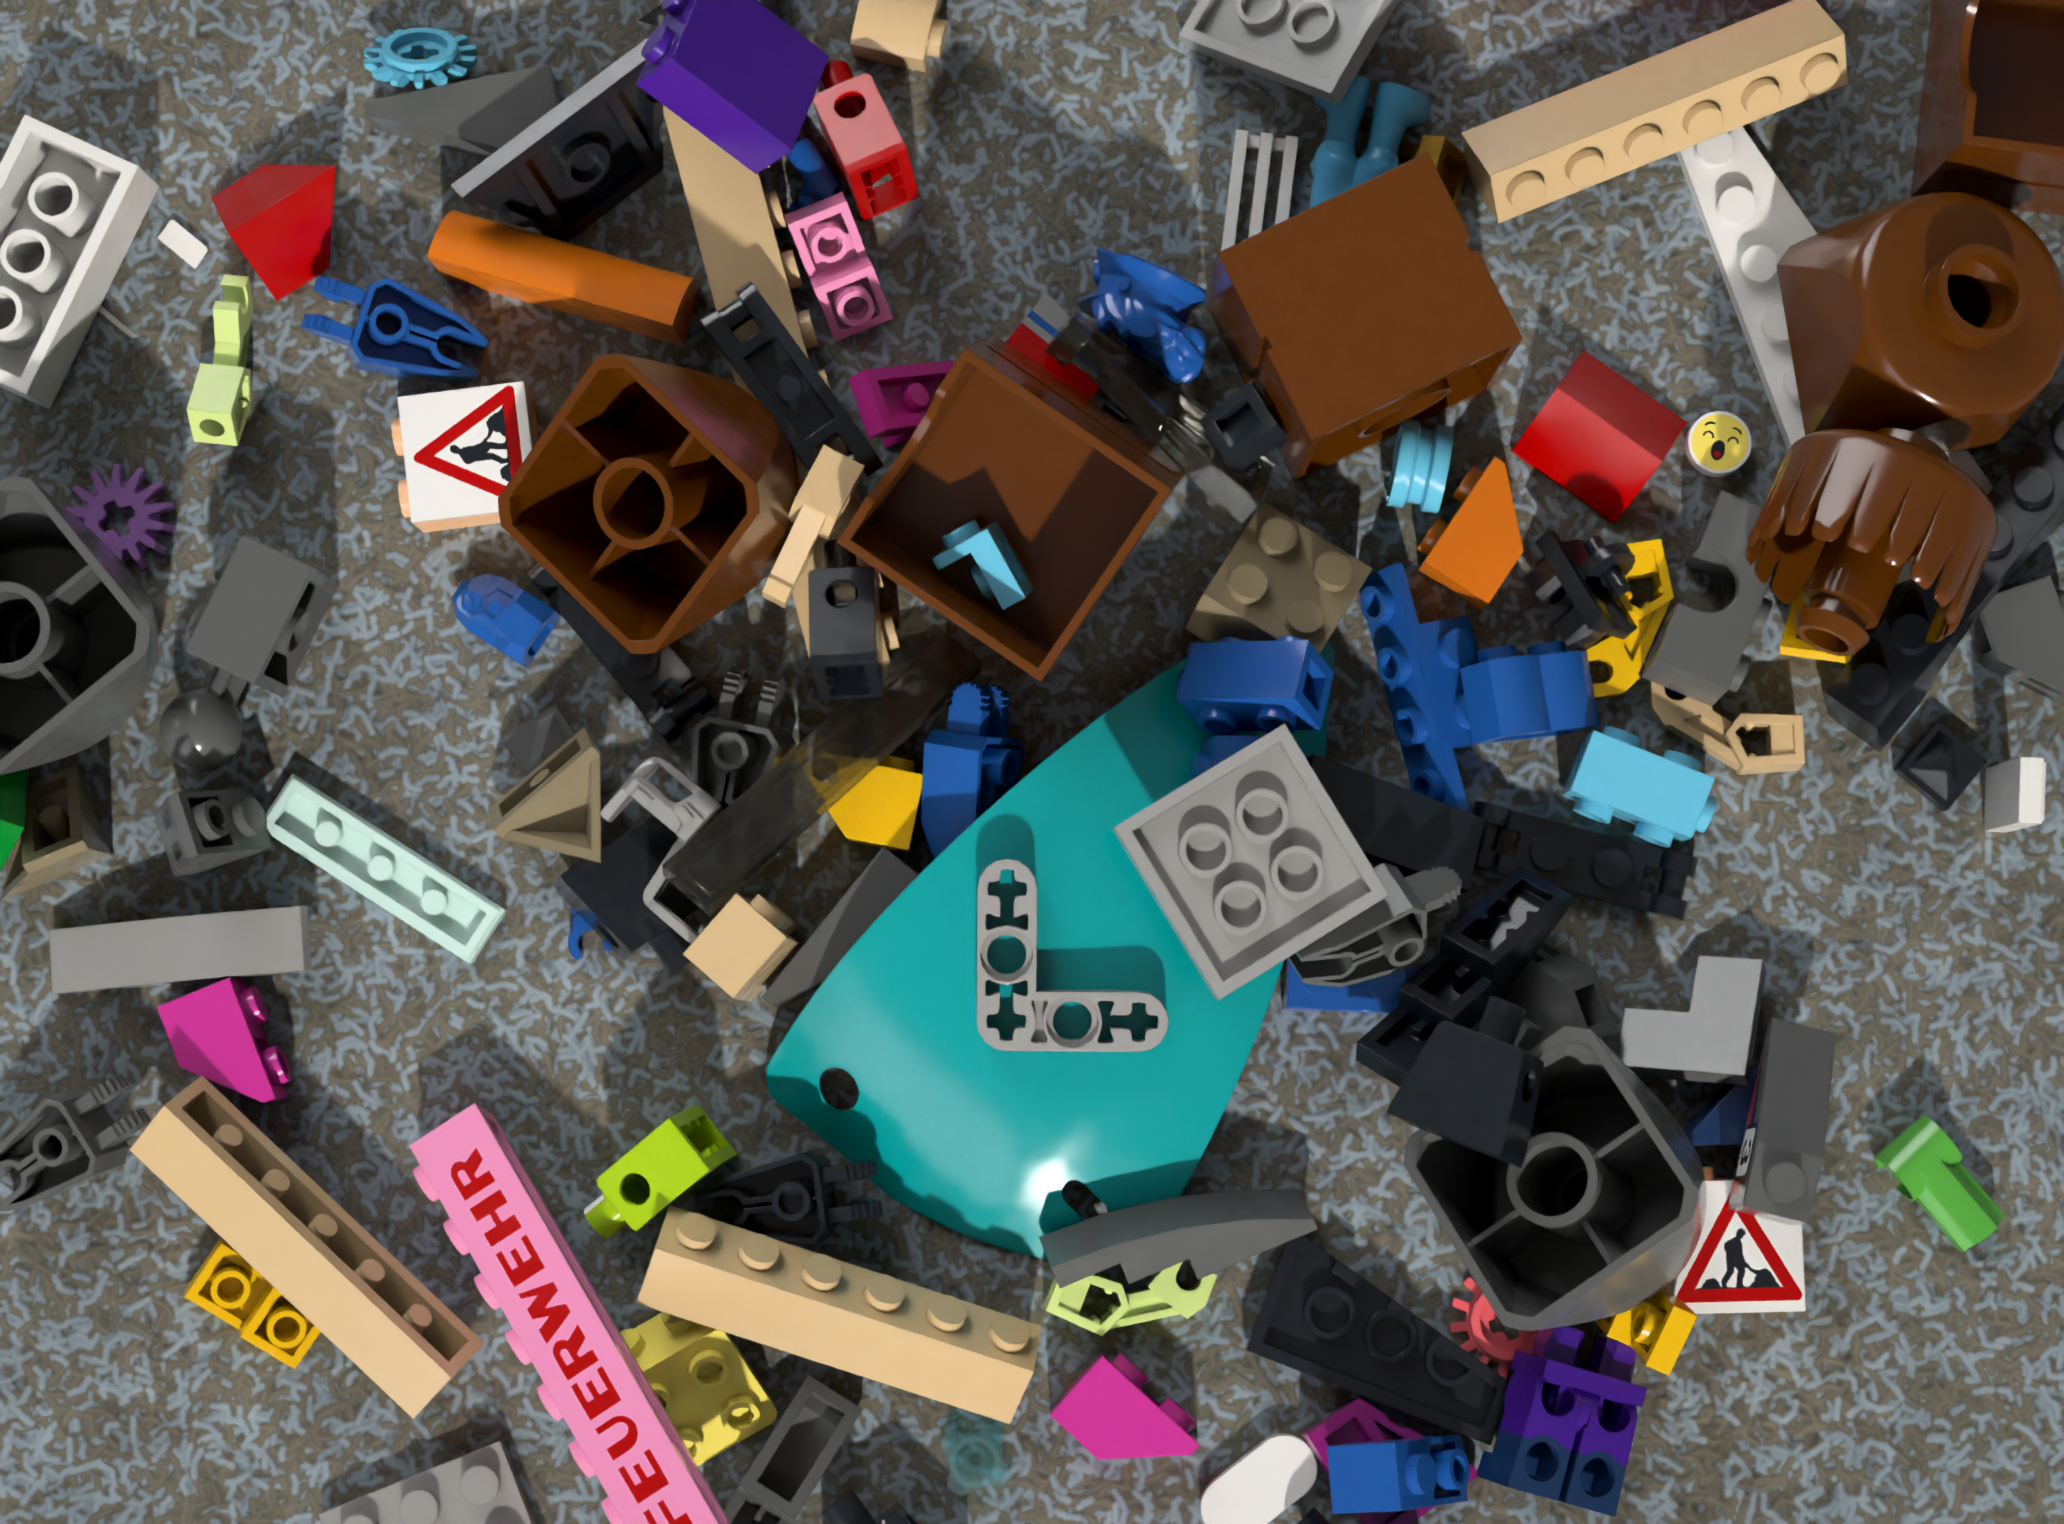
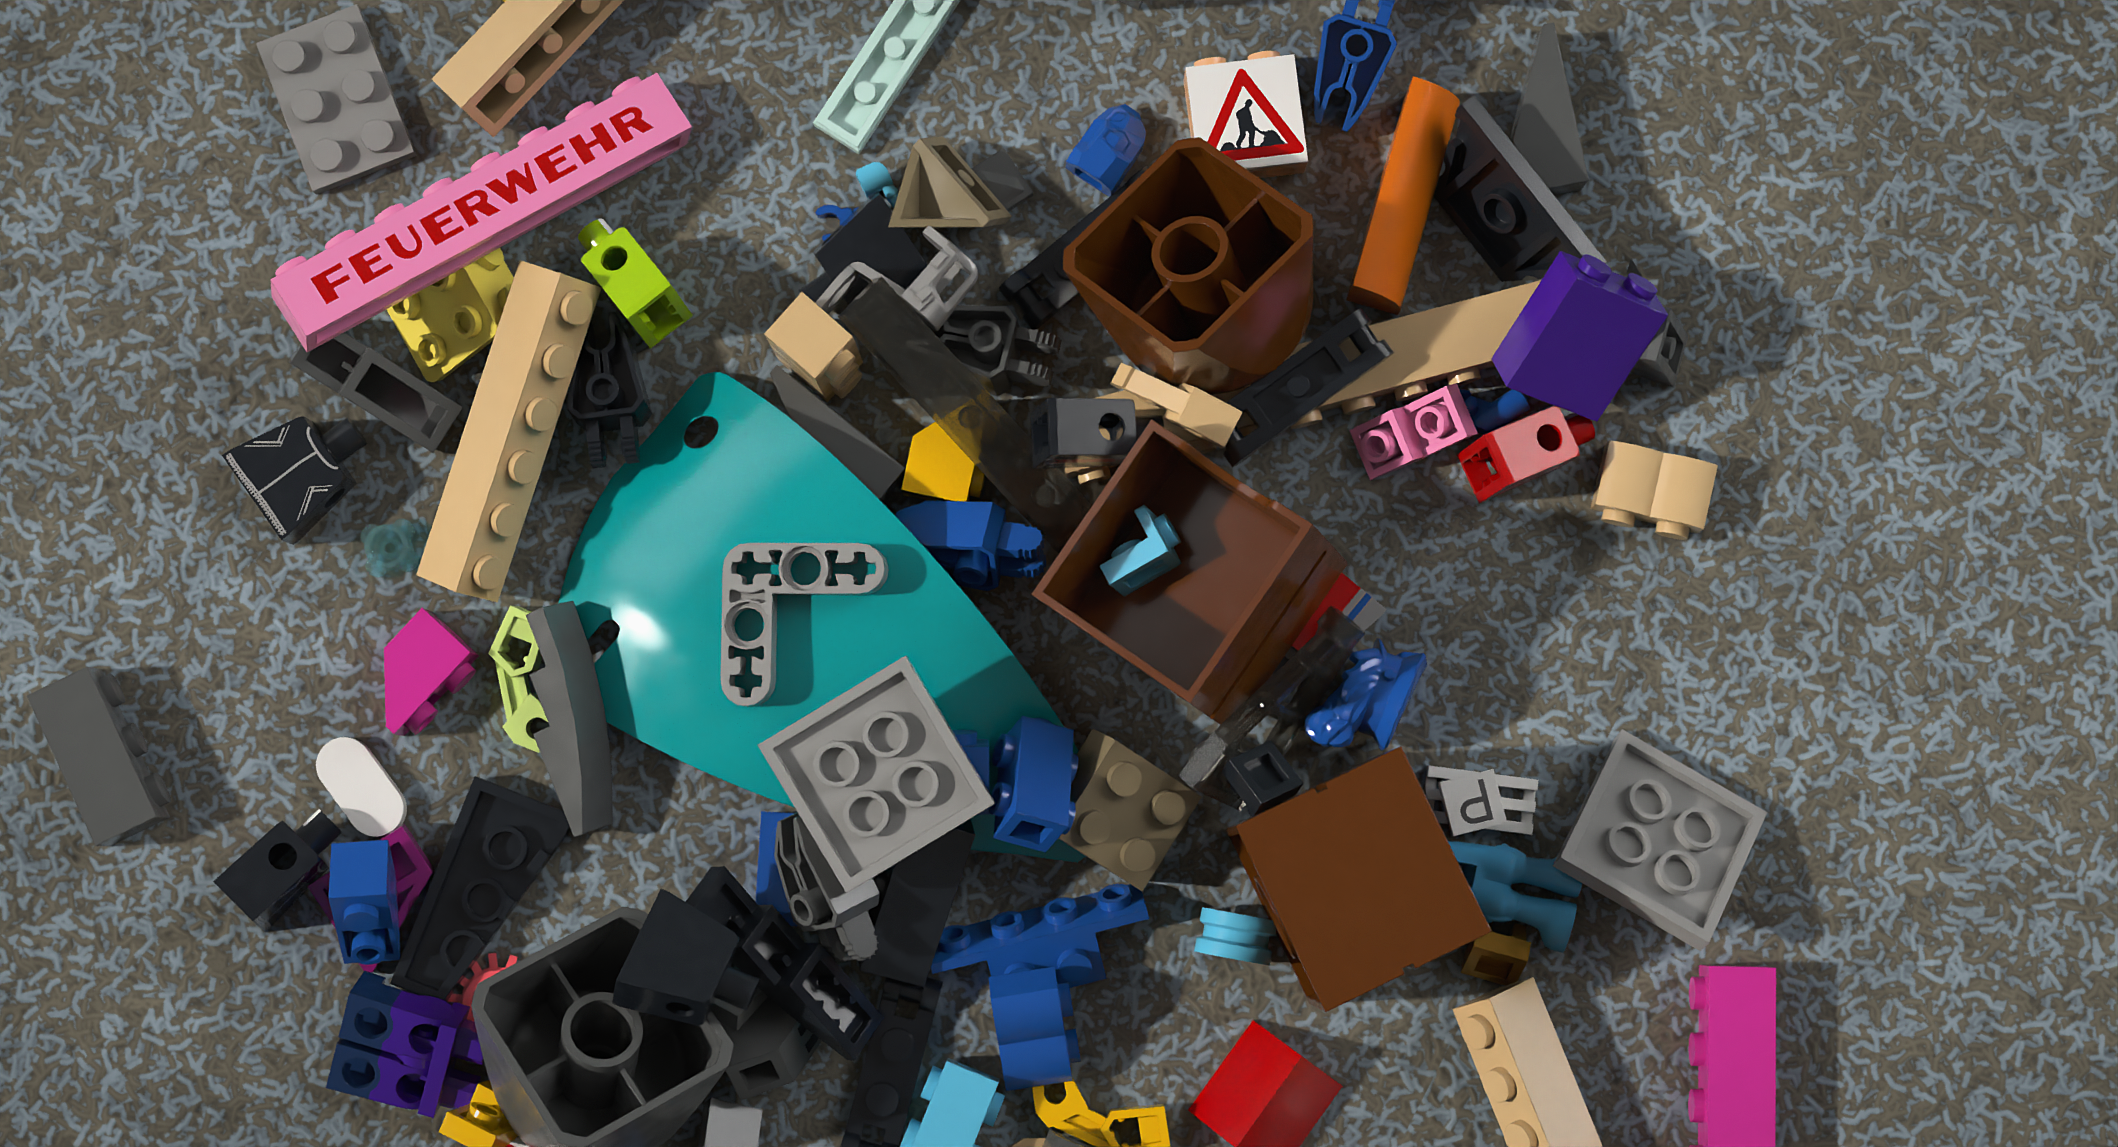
camera: 85 degrees right, 0 degrees up
(444, 57) = (1591, 49): medium azure gear -> none
(537, 888) = (876, 178): none -> medium azure hand
(896, 398) = (1294, 480): dark pink slope -> none
(1262, 198) = (1472, 802): none -> white tile
(1480, 541) = (1170, 989): orange slope -> none
(1593, 580) = (1130, 1084): black hips -> none

